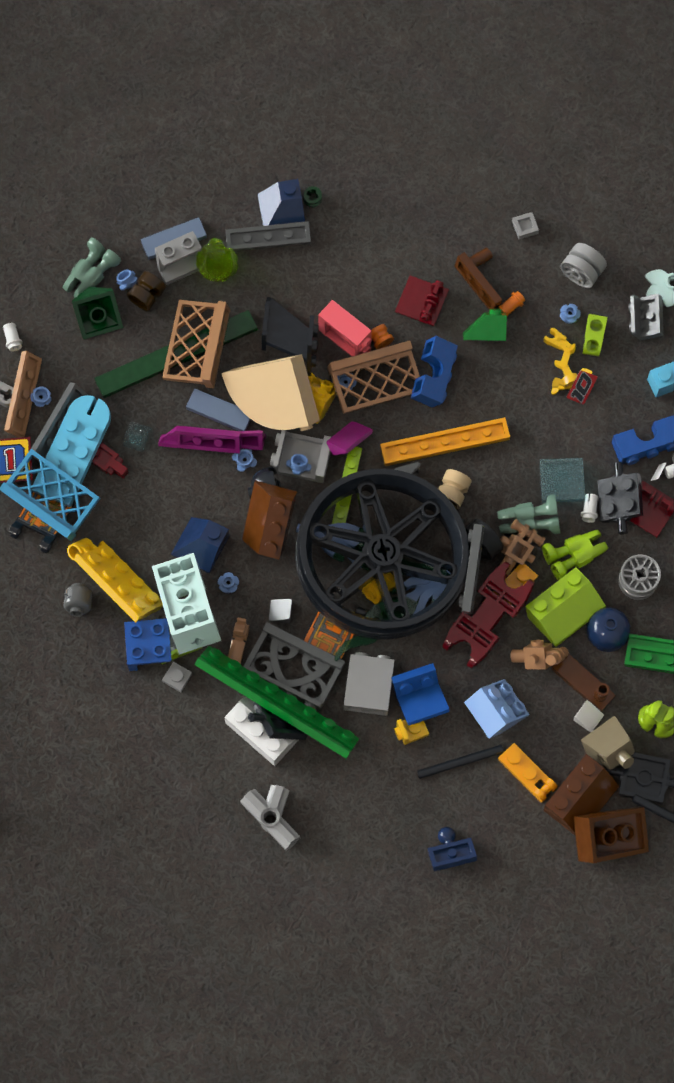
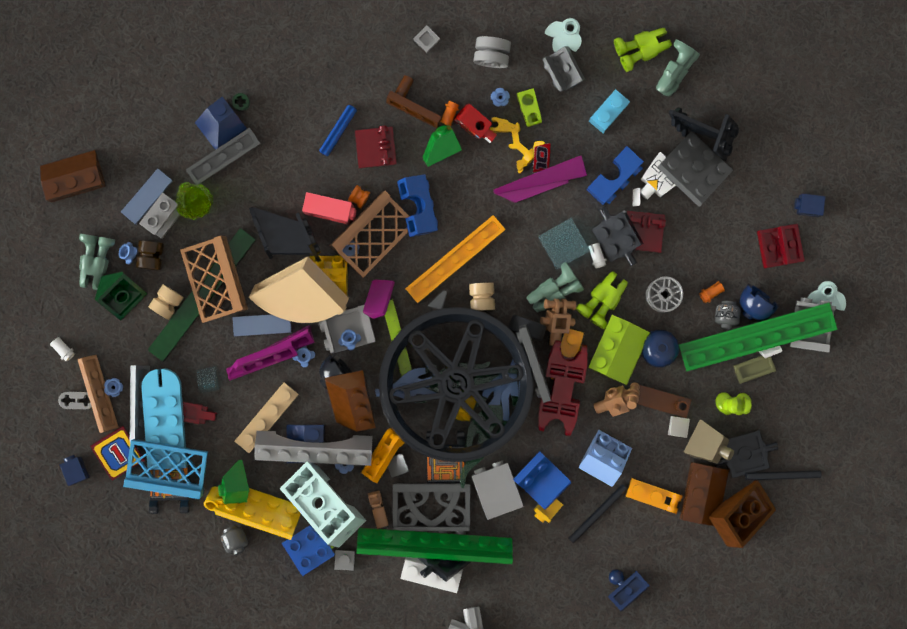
camera: 25 degrees left, 15 degrees up
(108, 542) = (234, 485): none -> green slope
(111, 186) = (71, 176): none -> reddish brown slope
(137, 341) = (165, 302): none -> tan wheel
(175, 500) = (267, 416): none -> tan plate
(241, 569) = (277, 448): none -> light grey arch
(271, 592) = (382, 455): none -> light orange plate
(393, 267) = (338, 130): none -> blue axle
(530, 314) = (467, 120): none -> red torso
(572, 409) = (543, 180): none -> magenta wedge

